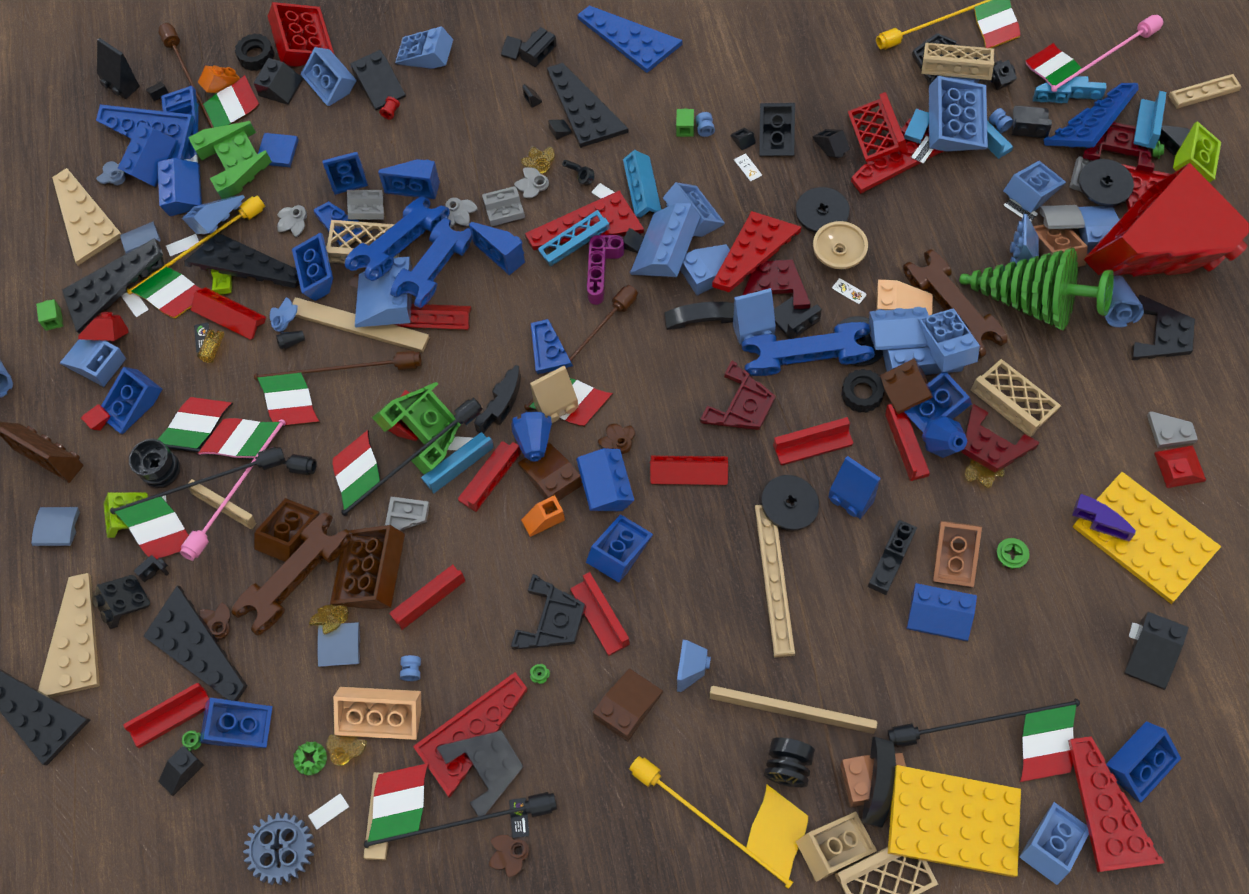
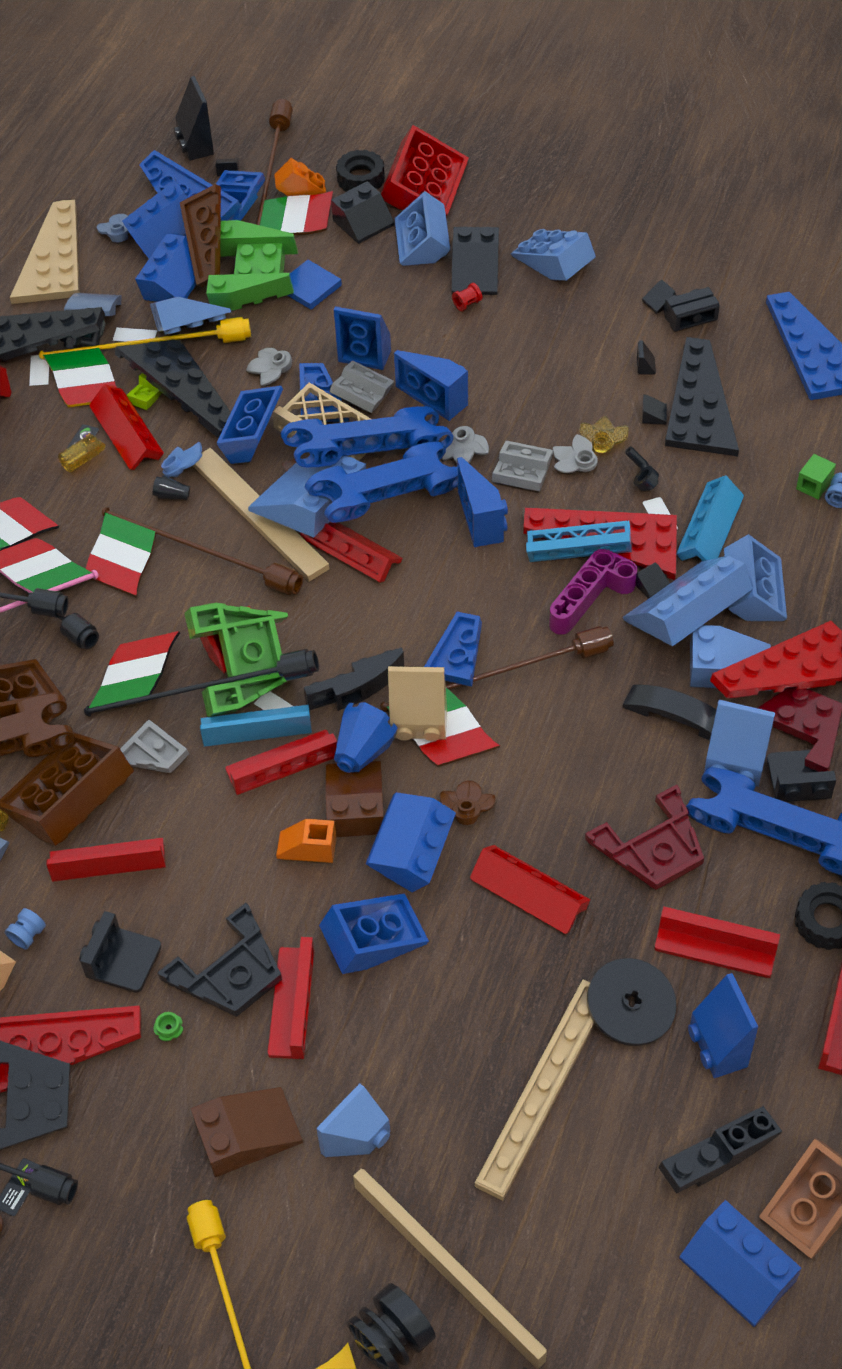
camera: 30 degrees right, 10 degrees down
(184, 147) = (203, 227): none -> reddish brown wing
(480, 650) = (118, 955): none -> black bracket

